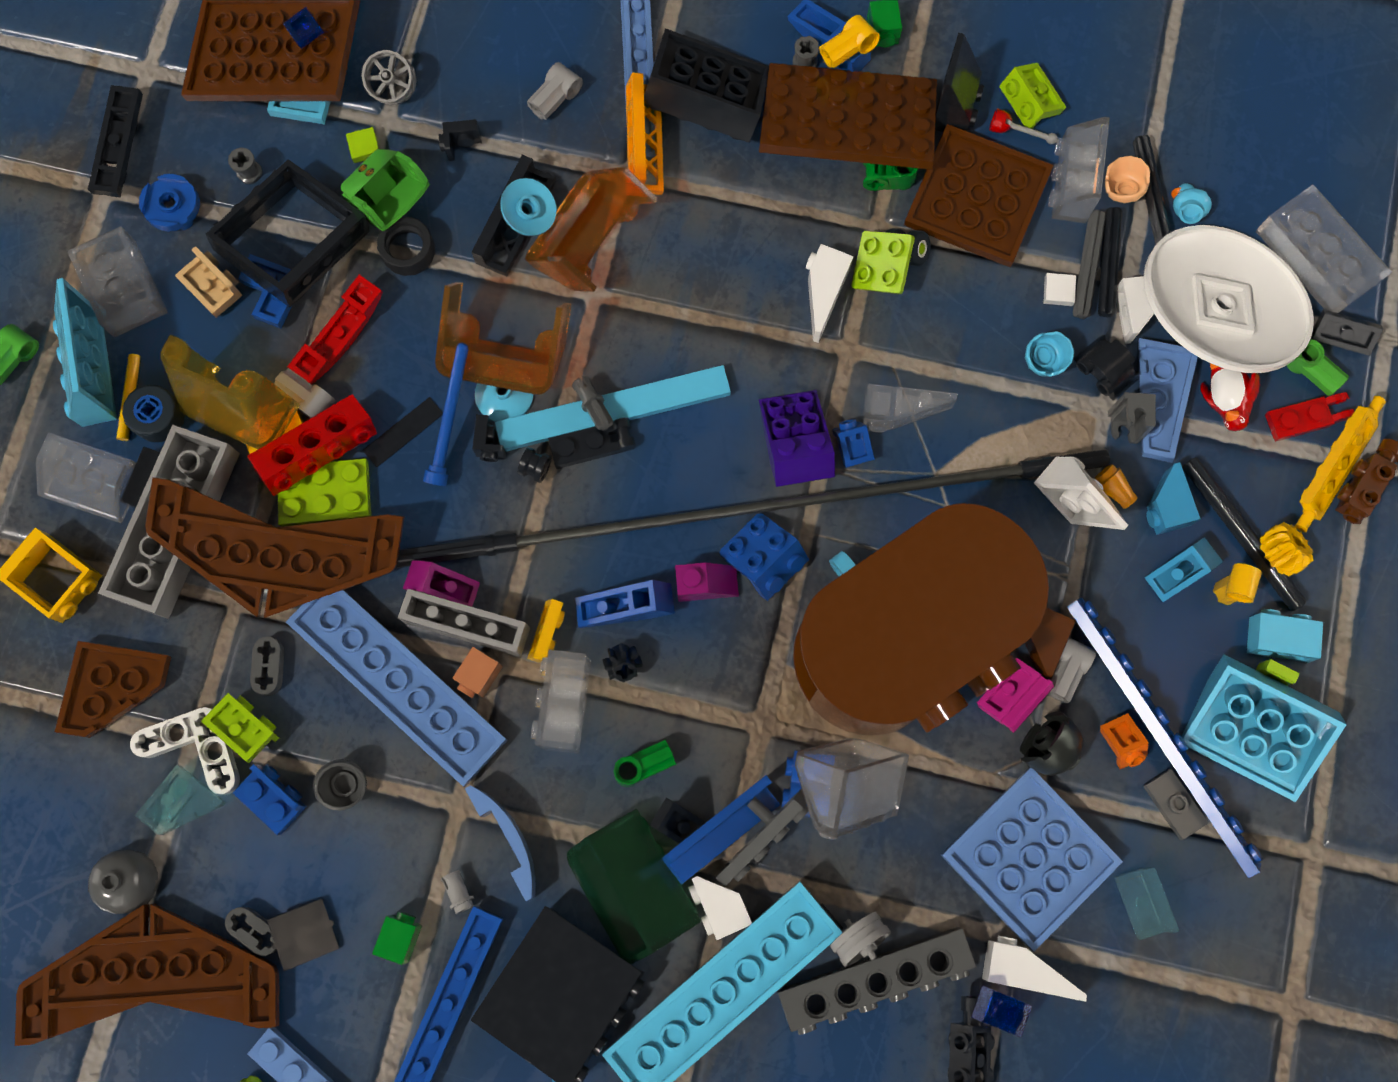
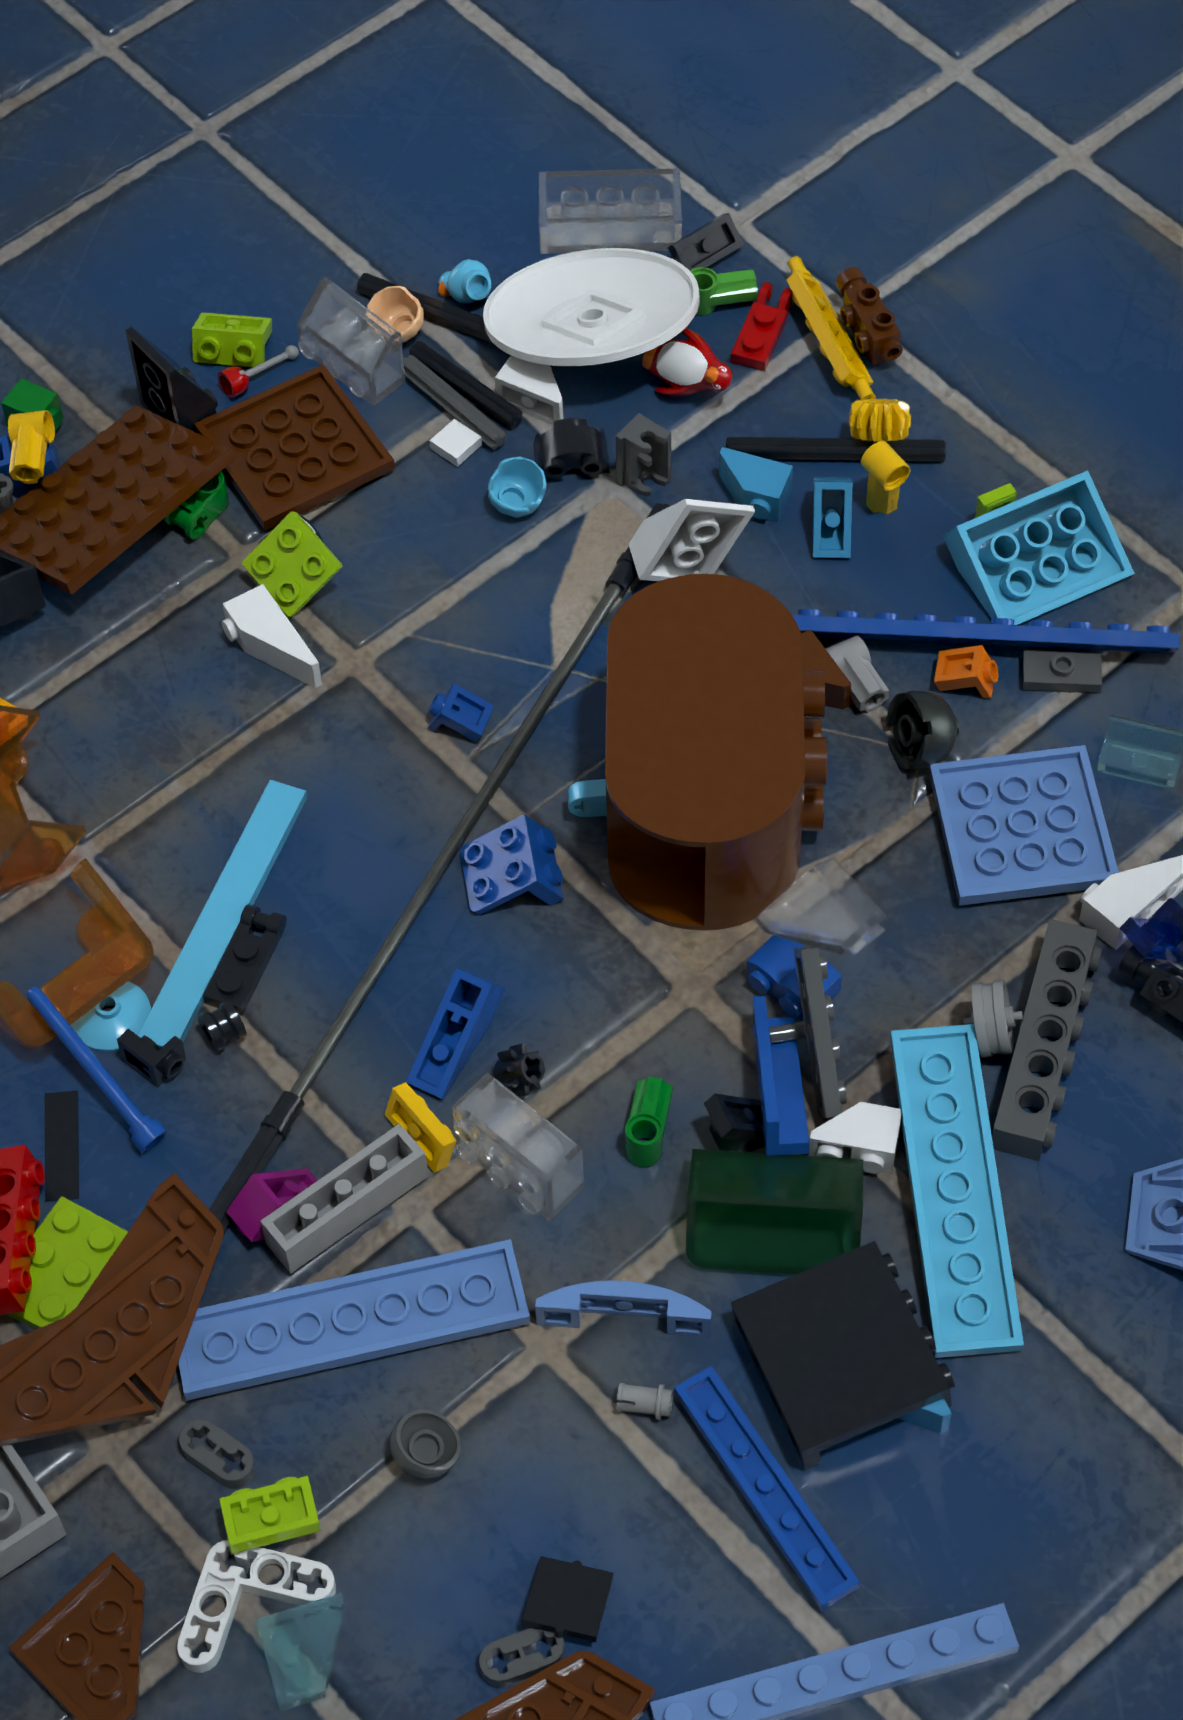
camera: 55 degrees left, 20 degrees down
(269, 798) = (377, 1541): blue bracket -> none
(397, 938) = (650, 1492): green brick -> none
(476, 673) = (411, 1225): nougat brick -> none
(592, 403) = (204, 921): dark grey axle -> none
(706, 581) = (492, 942): magenta slope -> none
(797, 438) = (412, 760): dark purple slope -> none
(896, 406) = (457, 647): clear slope -> none
(1015, 696) = (848, 733): dark pink plate -> none
(1169, 374) = (619, 399): medium blue wing -> none
(1284, 636) = (963, 476): medium azure brick -> none

